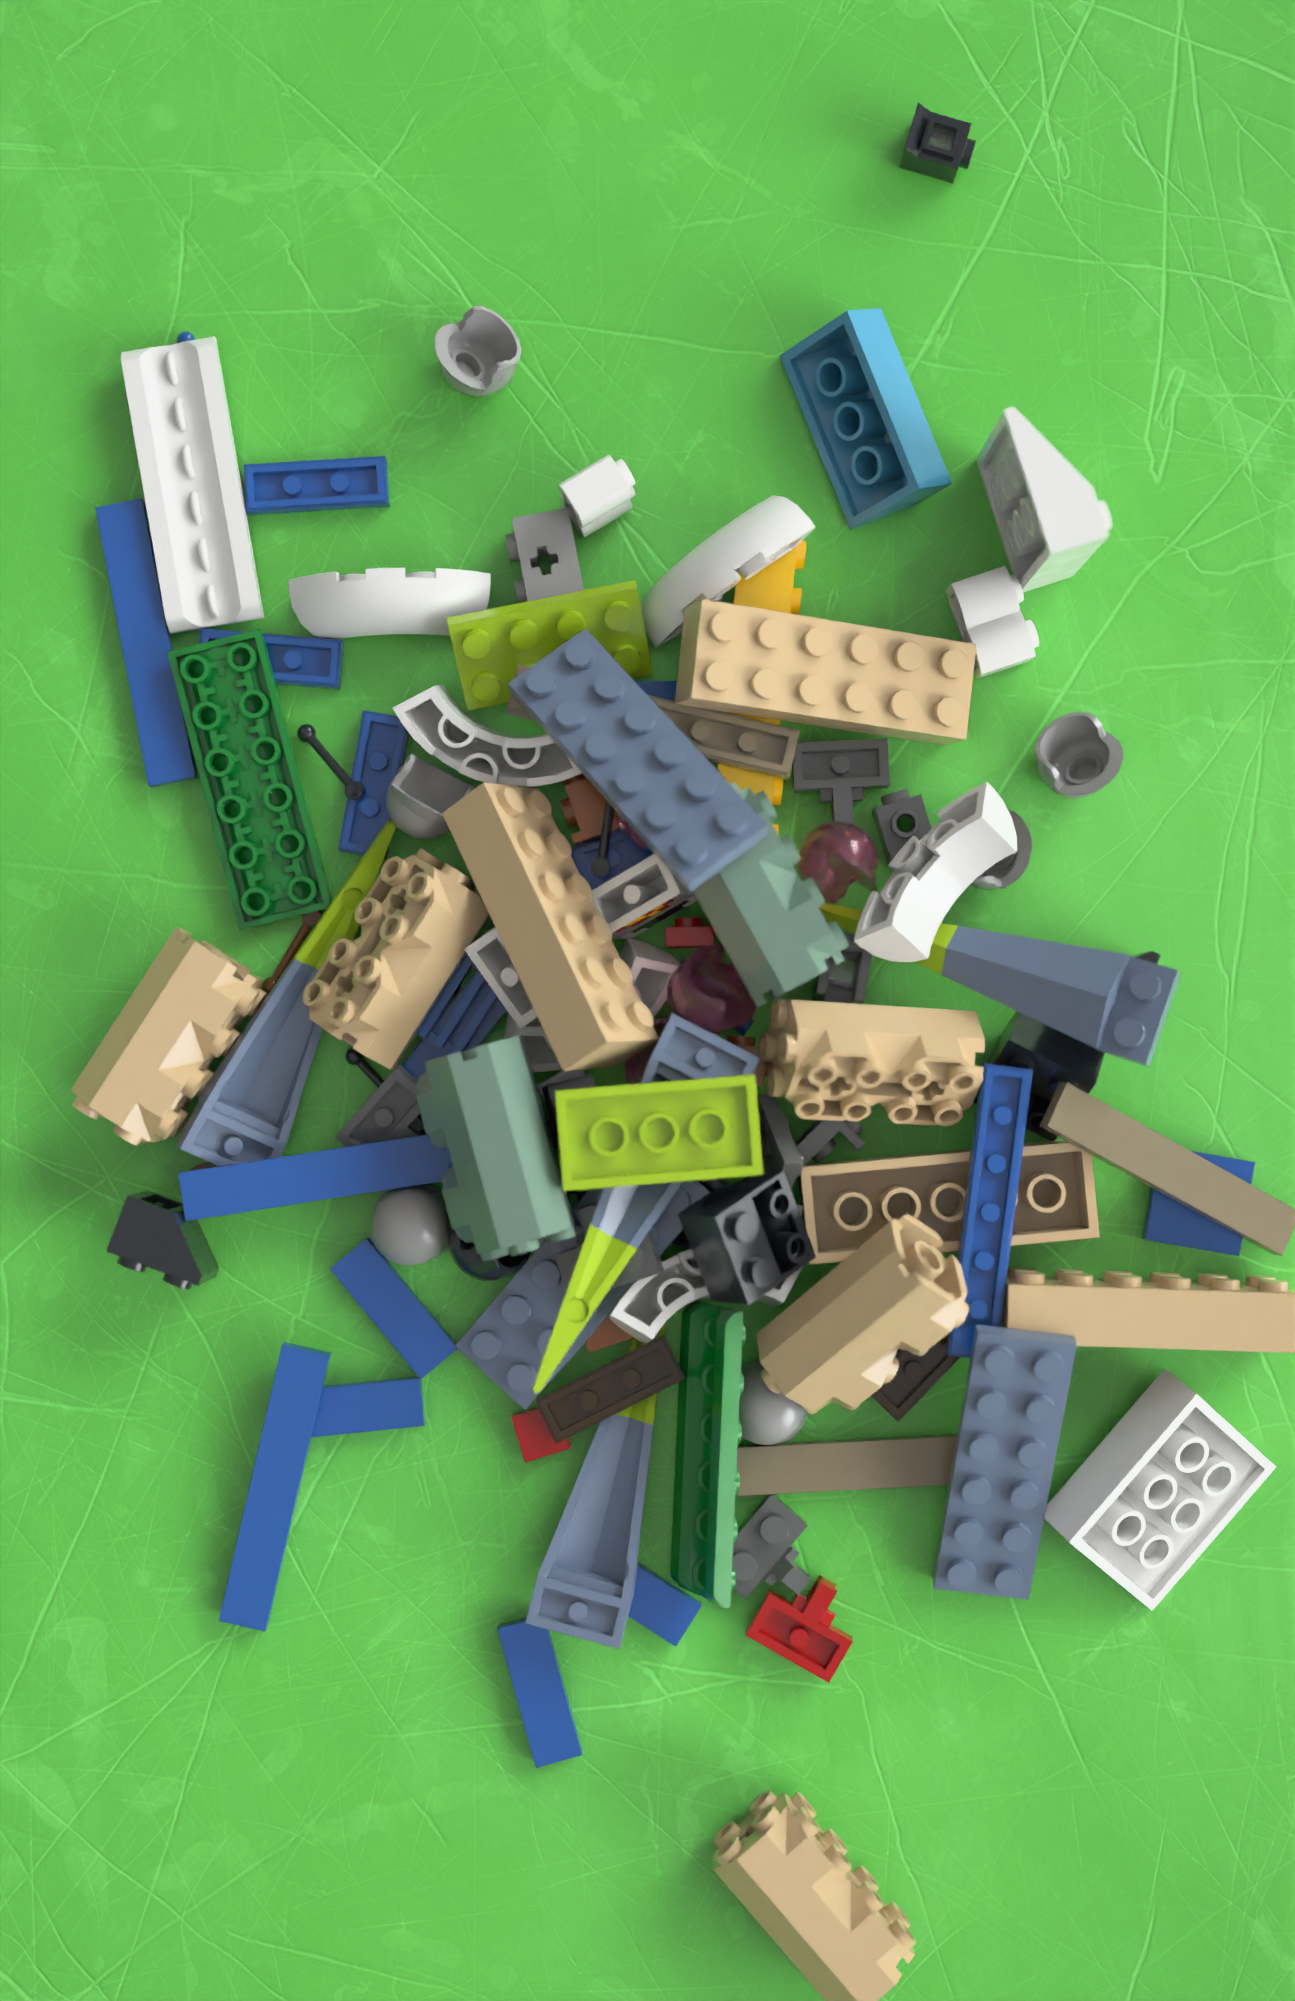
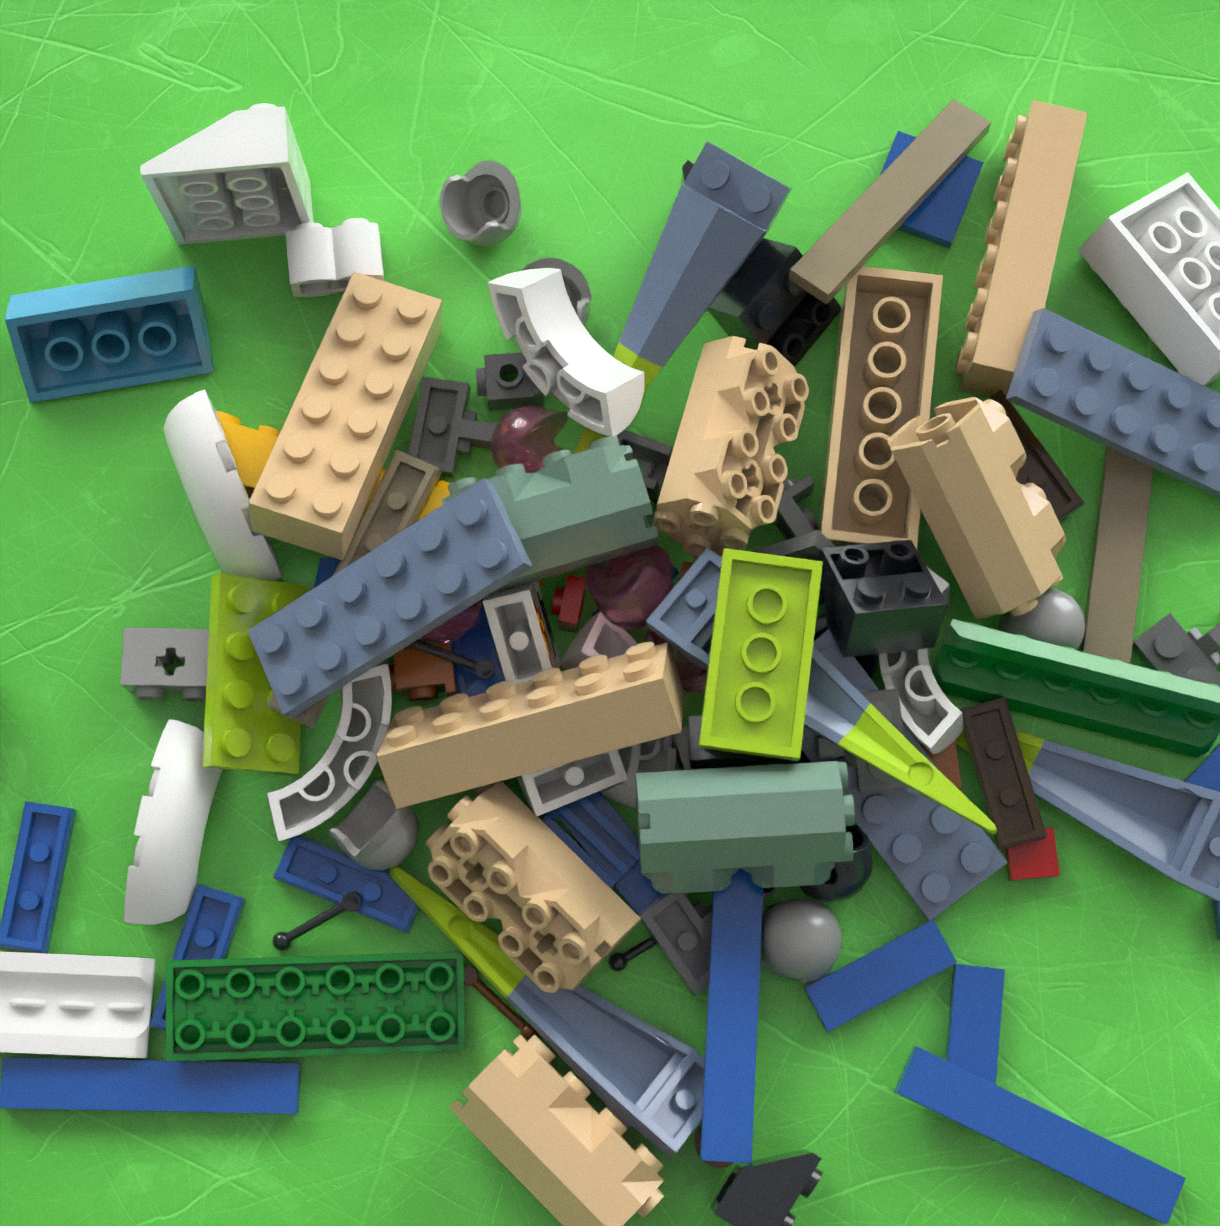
camera: 75 degrees left, 10 degrees down
(598, 494) = (118, 594): white brick -> none
(991, 1198) = (883, 362): blue tile -> none

